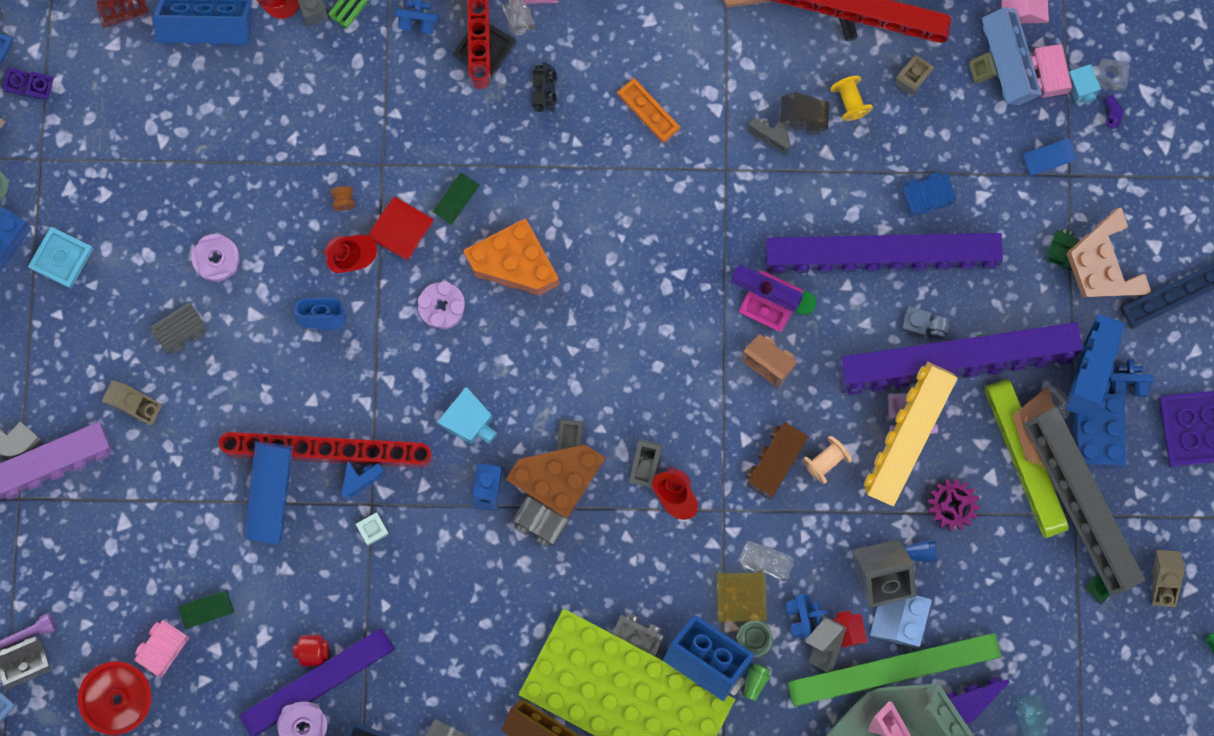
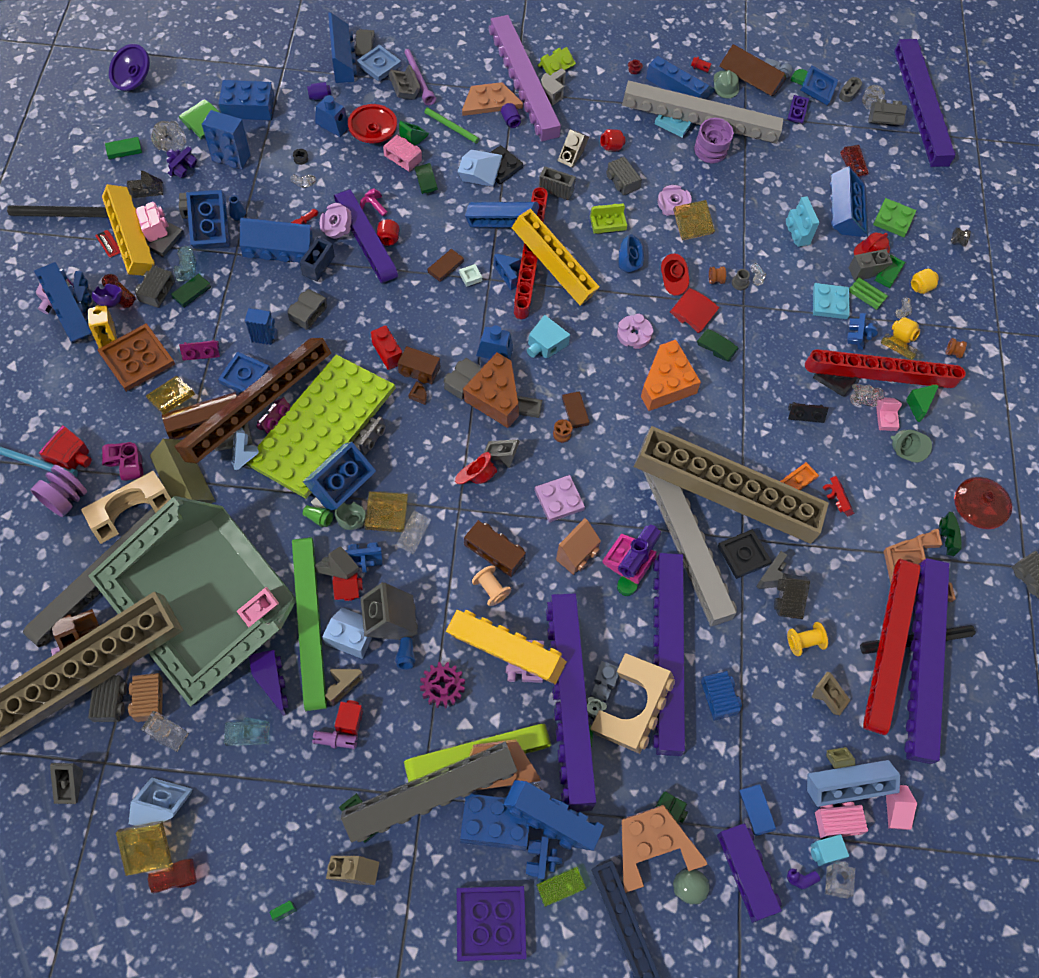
camera: 90 degrees right, 15 degrees down
(39, 533) = (489, 99): none -> nougat wing
(53, 220) = (698, 110): none -> light grey brick
(74, 498) = (511, 115): none -> dark purple brick
(96, 585) = (451, 125): none -> bright green bar
(110, 190) = (713, 140): none -> medium lavender wheel
(113, 347) = (612, 140): none -> red head
(121, 638) = (412, 132): none -> green slope
(167, 506) = (508, 166): none -> black plate
(182, 531) = (479, 167): none -> light blue slope
(204, 421) = (557, 183): none -> dark grey brick
(251, 230) = (693, 220): none -> clear yellow plate
(252, 84) = (802, 222): none -> medium azure plate
(252, 680) = (371, 197): none -> dark pink plant
(260, 346) = (608, 218): none -> lime bracket
(334, 143) = (760, 275): none -> clear arm
(347, 413) = (555, 256): none -> yellow brick
(348, 174) = (741, 280): none -> dark grey piece
(355, 565) = (445, 265): none -> reddish brown tile
(367, 52) = (831, 301): none -> medium azure plate
(504, 627) = (386, 347): none -> red brick
(527, 581) = (418, 365): none -> reddish brown brick
(564, 579) = (418, 393): none -> reddish brown tile
(569, 376) = (575, 409): none -> reddish brown tile
(604, 385) = (560, 427): none -> dark orange wheel
(668, 50) = (837, 490): none -> red plate
(672, 182) = (731, 485): none -> dark tan brick
(698, 389) = (559, 498): none -> lavender plate
(730, 236) = (696, 556): none -> light grey brick
(750, 167) = (744, 553): none -> black plate
(957, 327) = (592, 702): none -> light aqua plate
(961, 613) = (346, 679): none -> dark tan slope
(989, 288) = (634, 732): none -> tan arch
(1005, 604) = (349, 717): none -> red brick
(1029, 618) = (334, 739): none -> medium lavender pin
(1116, 166) = (749, 873): none -> dark purple brick
(1139, 226) = (691, 886): none -> sand green hair
(1153, 359) = (561, 887): none -> clear neon green tile

